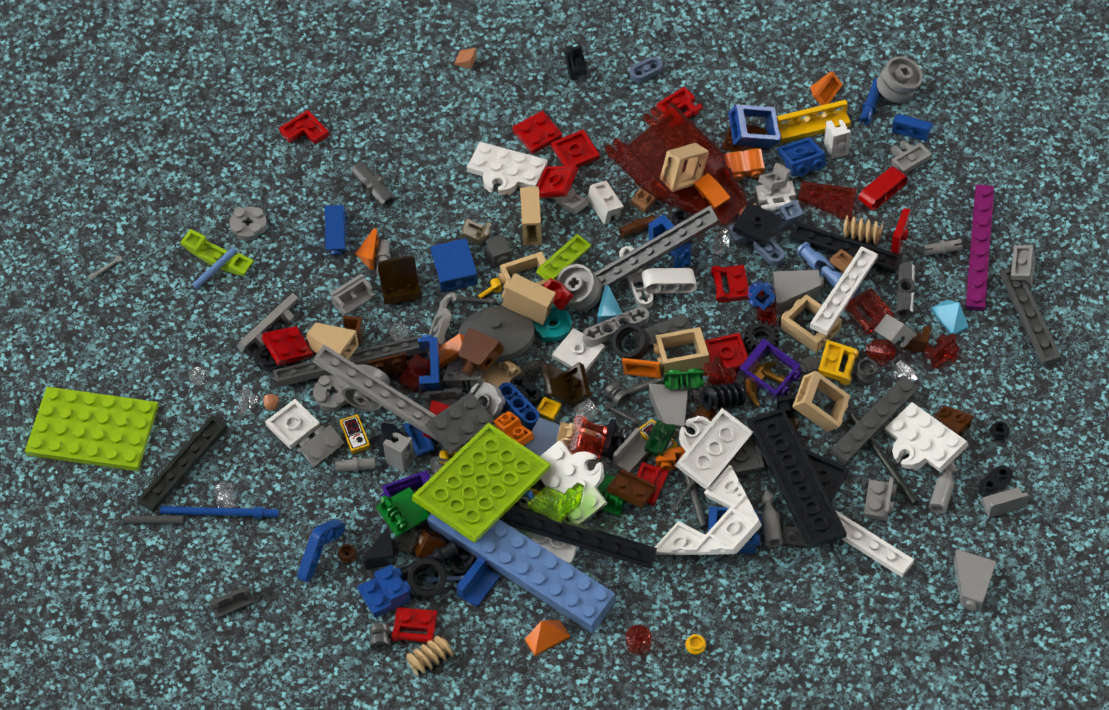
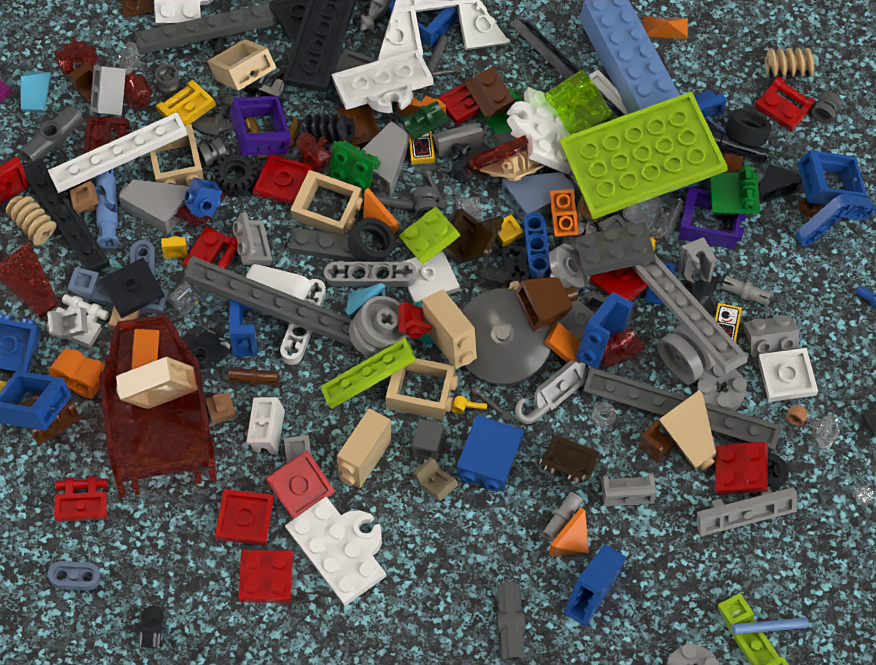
camera: 150 degrees left, 5 degrees up
(328, 559) = (813, 178): none -> blue window
(385, 591) = (793, 141): blue plate -> none
(392, 366) = (648, 363): reddish brown hinge -> none
(595, 367) = (429, 235): none -> lime plate
(709, 299) = (252, 241): none -> light grey bracket
(756, 268) = (174, 247): none -> yellow plate
(790, 342) = (211, 152): none -> dark grey wheel

